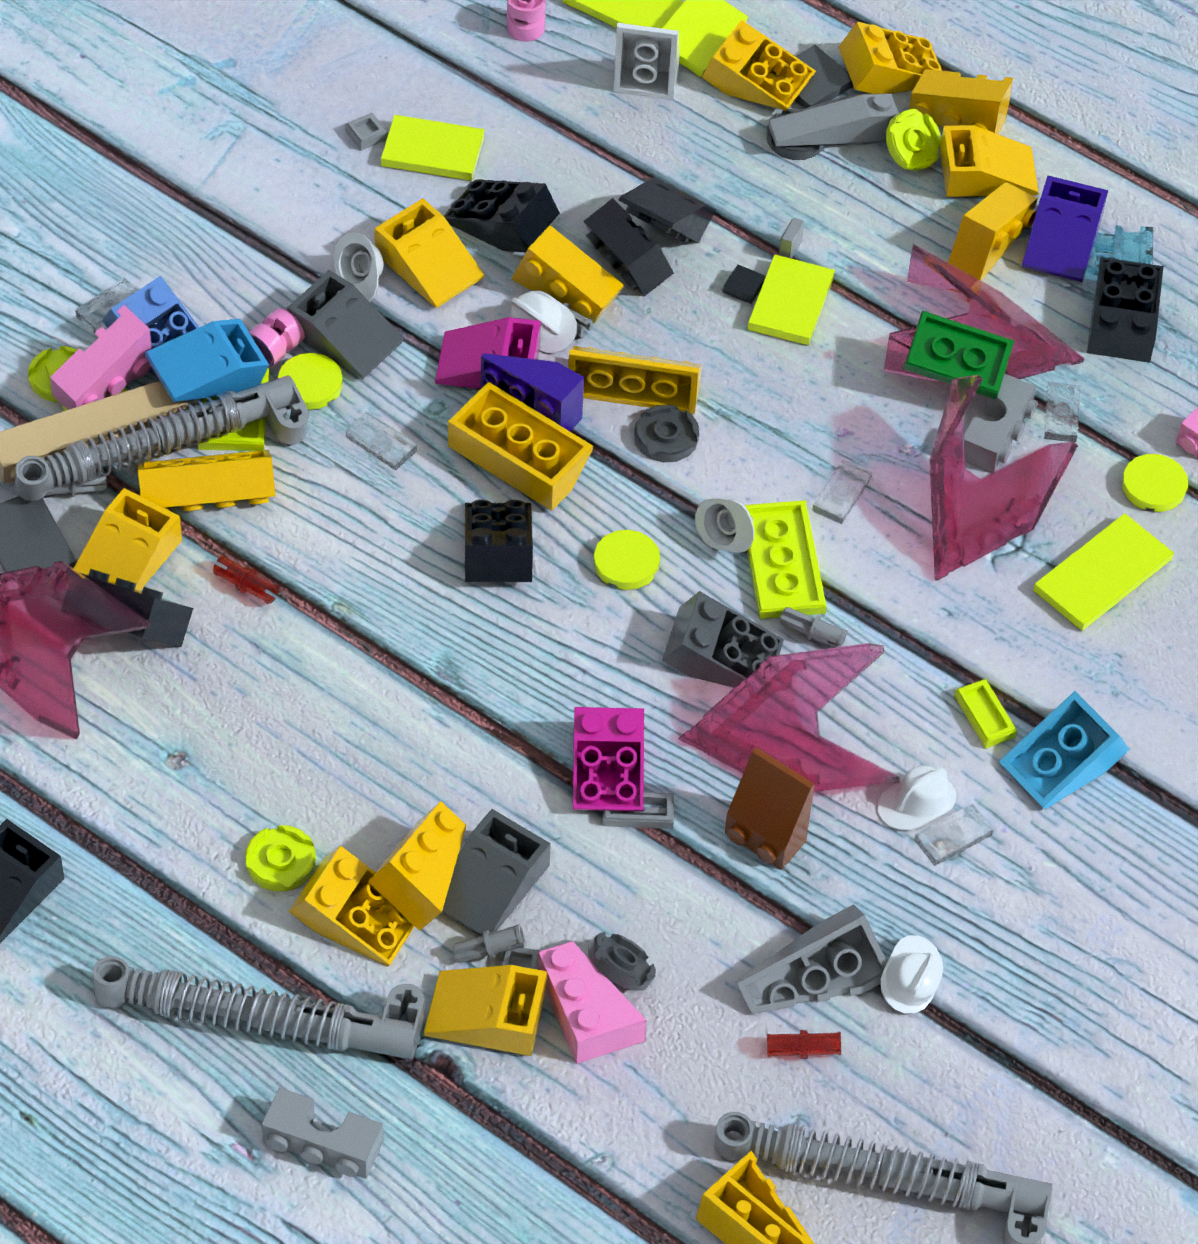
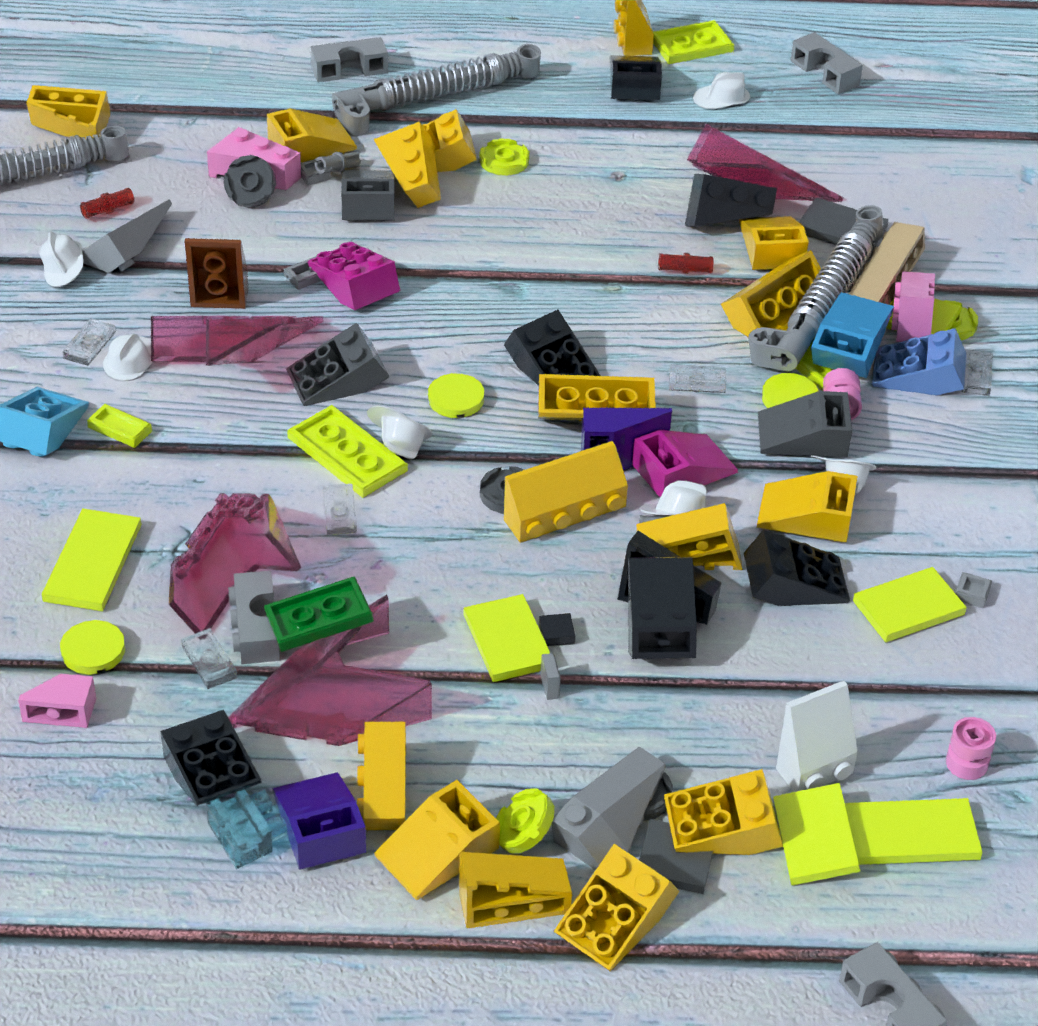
camera: 145 degrees right, 10 degrees down
(813, 627) = (284, 411): light grey axle -> none

